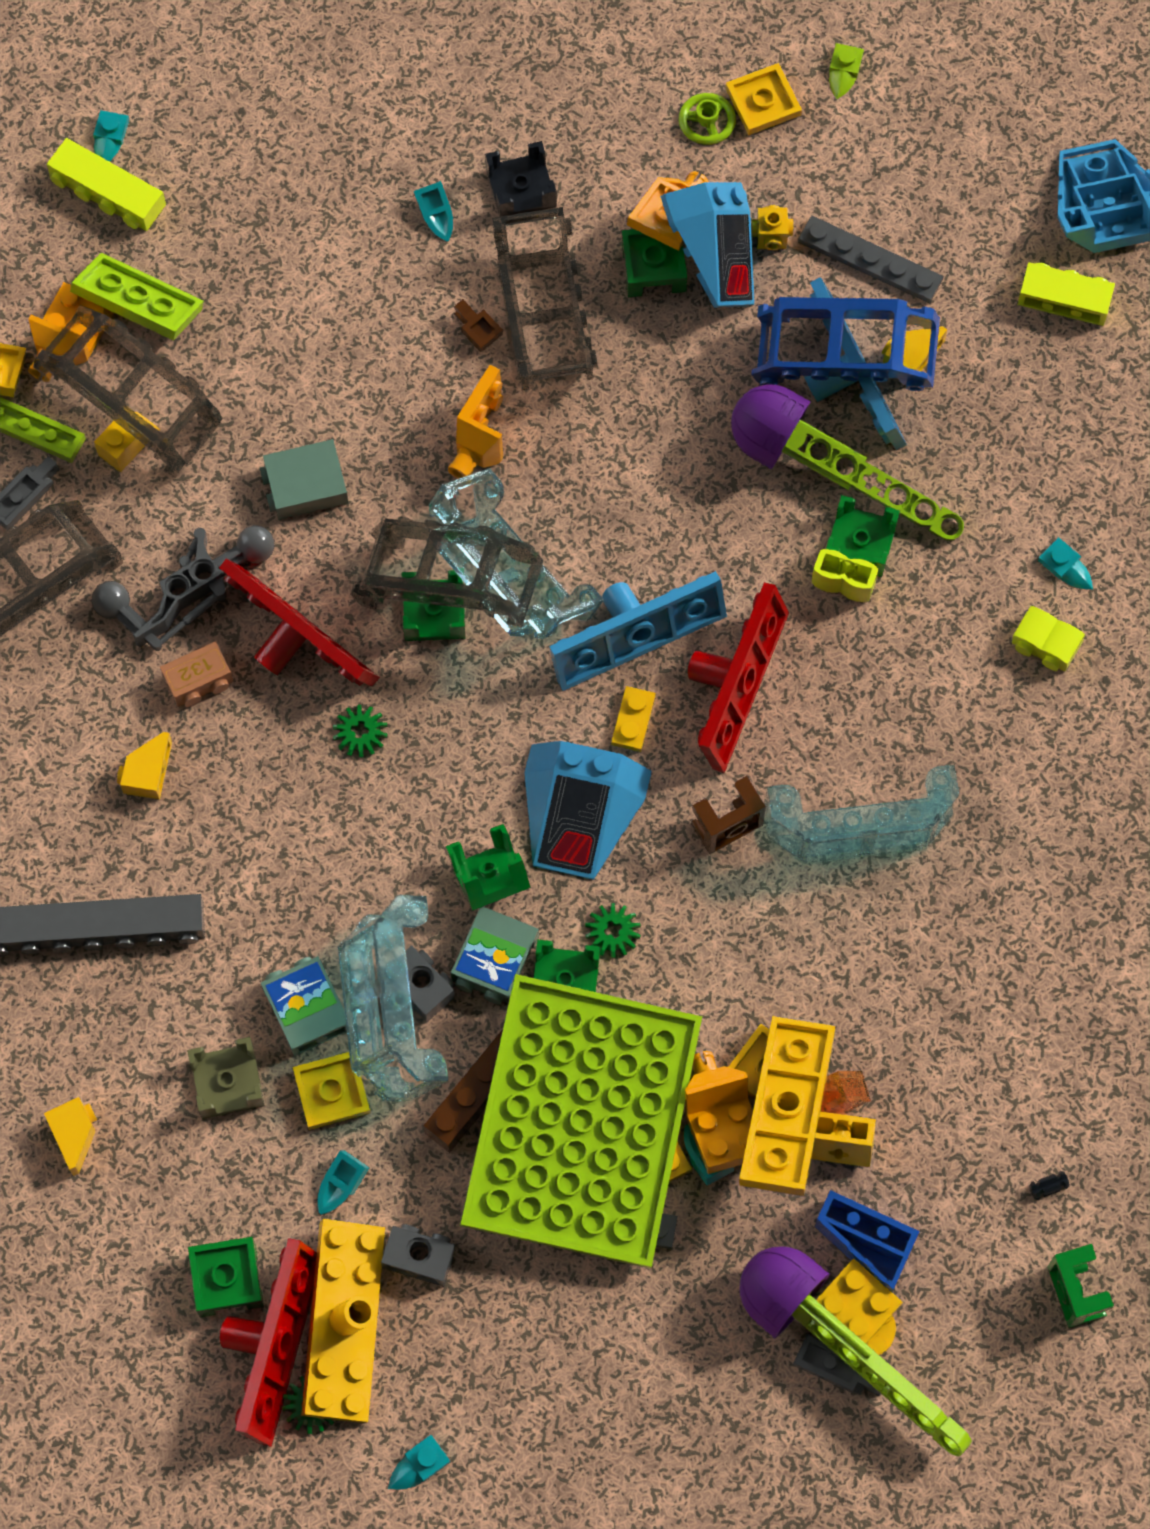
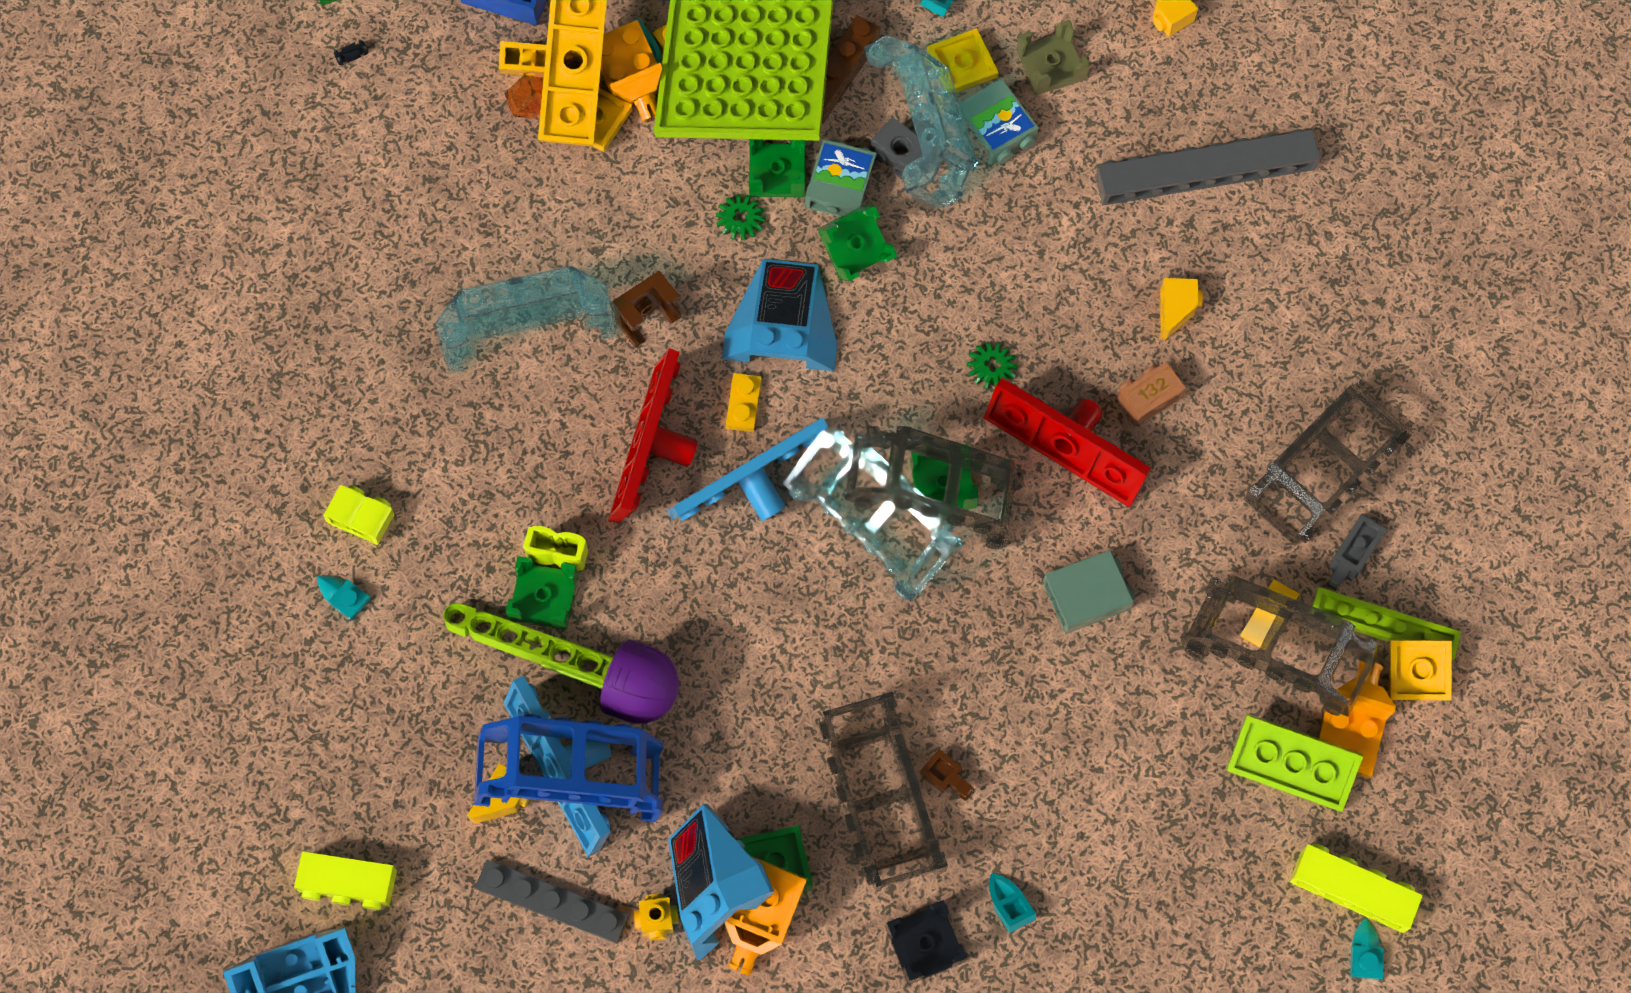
camera: 170 degrees right, 0 degrees up
(112, 599) = (1244, 455): dark grey piece -> none
(475, 440) = (929, 637): light orange plate -> none

